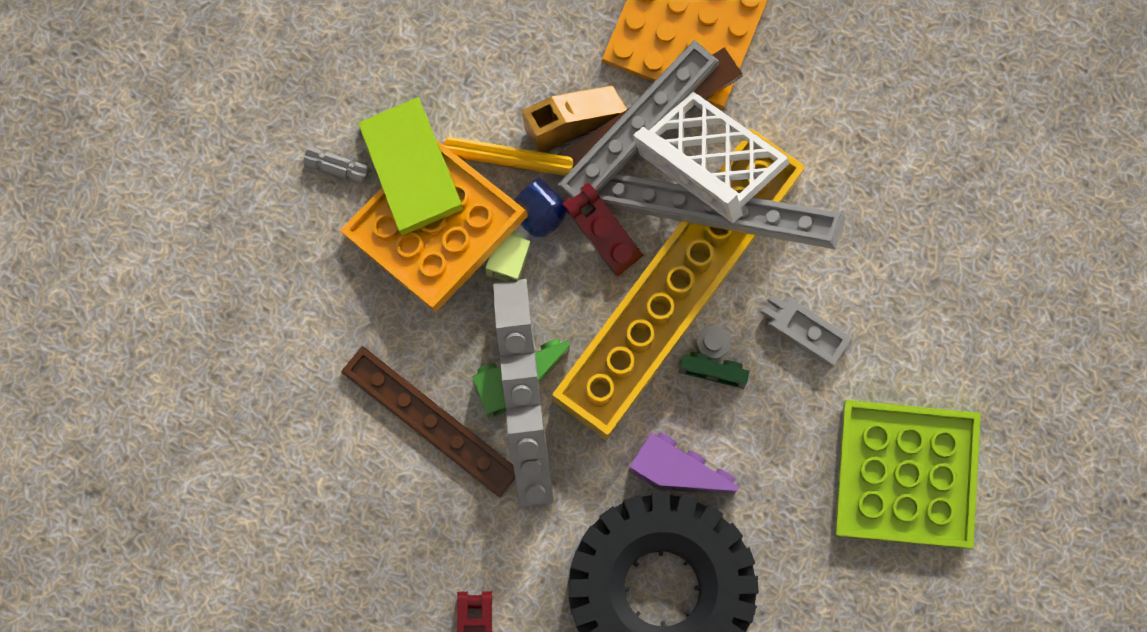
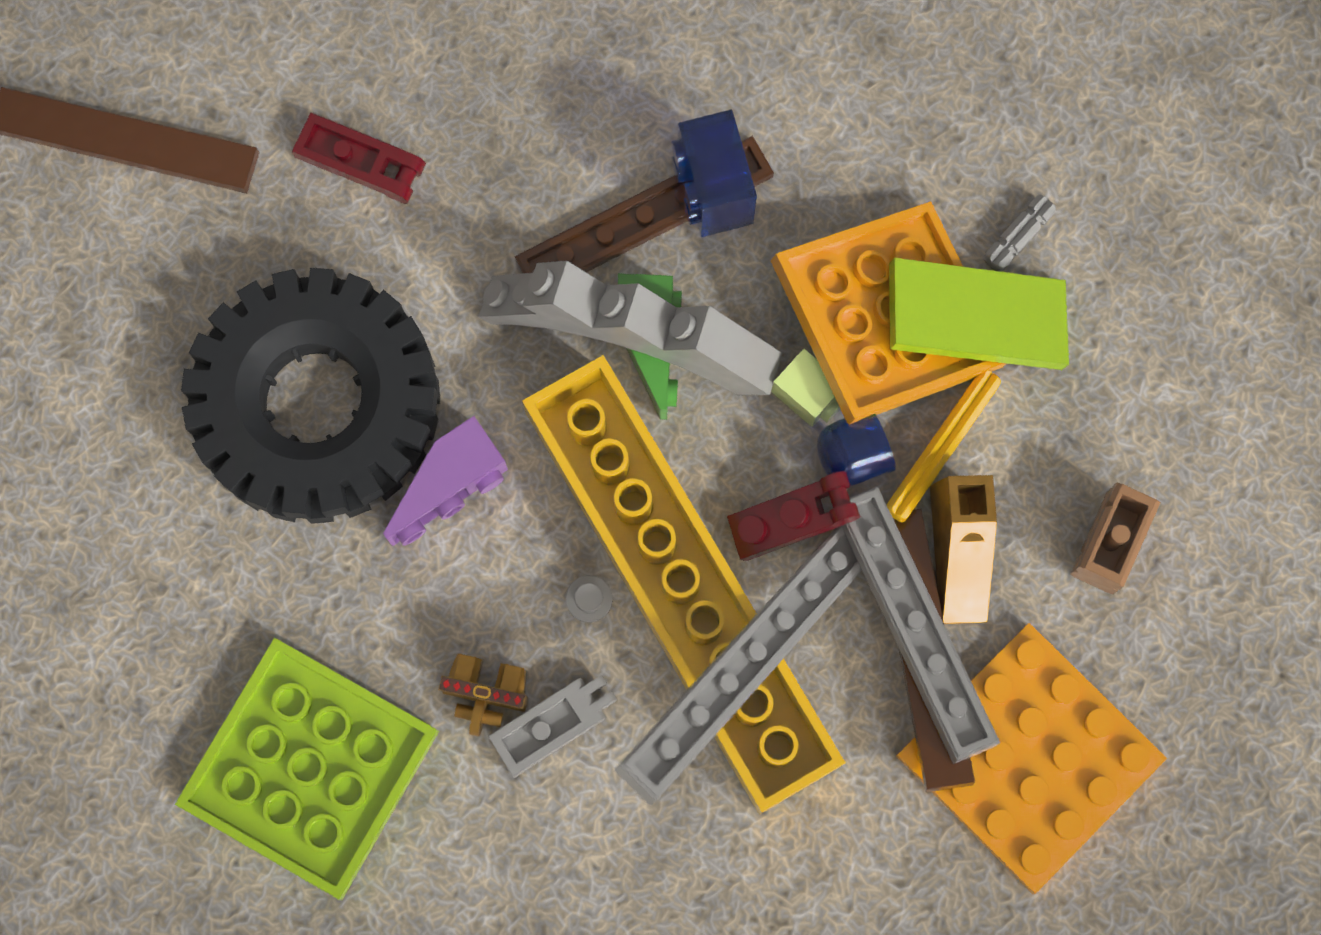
camera: 120 degrees right, 0 degrees up
(390, 374) = (715, 173): none -> clear blue brick
(525, 23) = (1115, 538): none -> medium nougat brick
(697, 179) = (802, 649): white fence -> none
(728, 373) = (563, 565): dark green plate -> none
(801, 366) = (464, 684): none -> pearl gold hips

